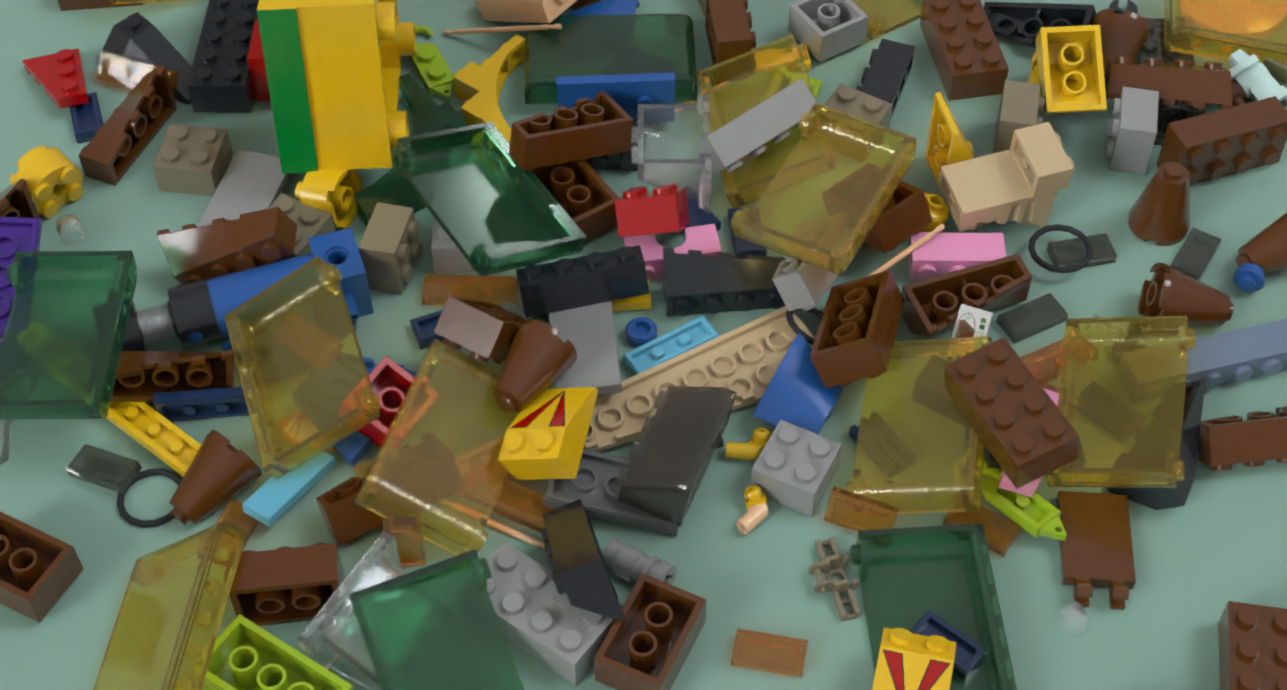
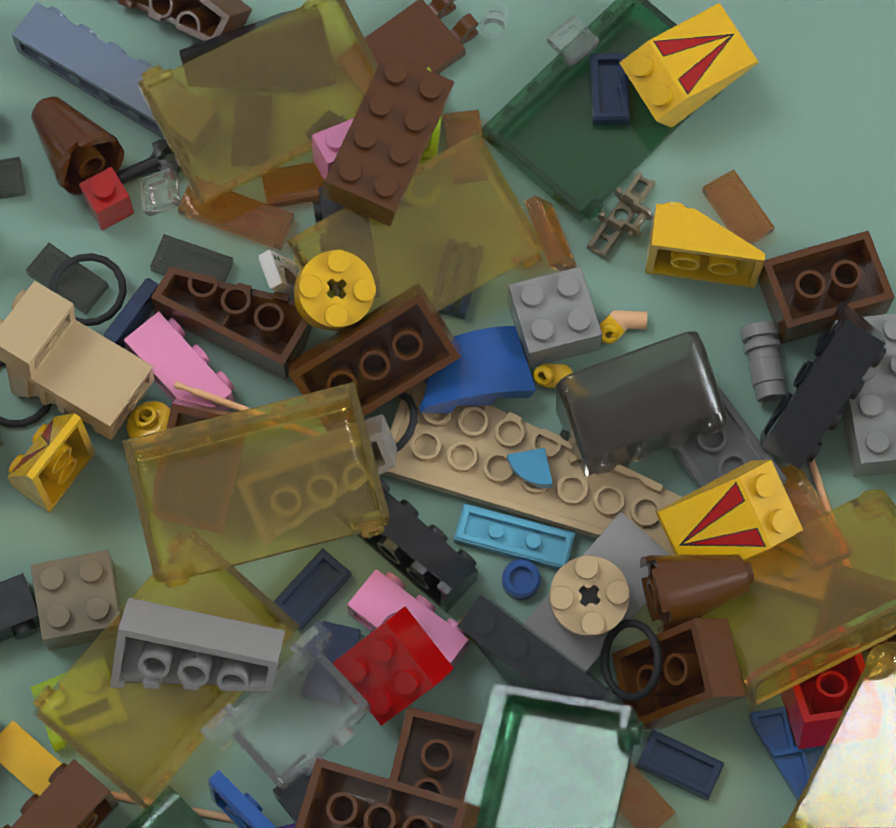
camera: 135 degrees left, 20 degrees up
(515, 314) = (631, 623): none -> black piece
(587, 320) = (589, 573): none -> tan brick
(702, 372) = (531, 467): none -> dark azure tile
(759, 579) = (697, 248): none -> yellow slope
(925, 325) = (335, 268): none -> yellow brick
(1004, 629) = (572, 40): none -> clear tile
(1015, 245) = (133, 313): none -> dark blue tile
(1121, 294) = (106, 198): none -> red brick

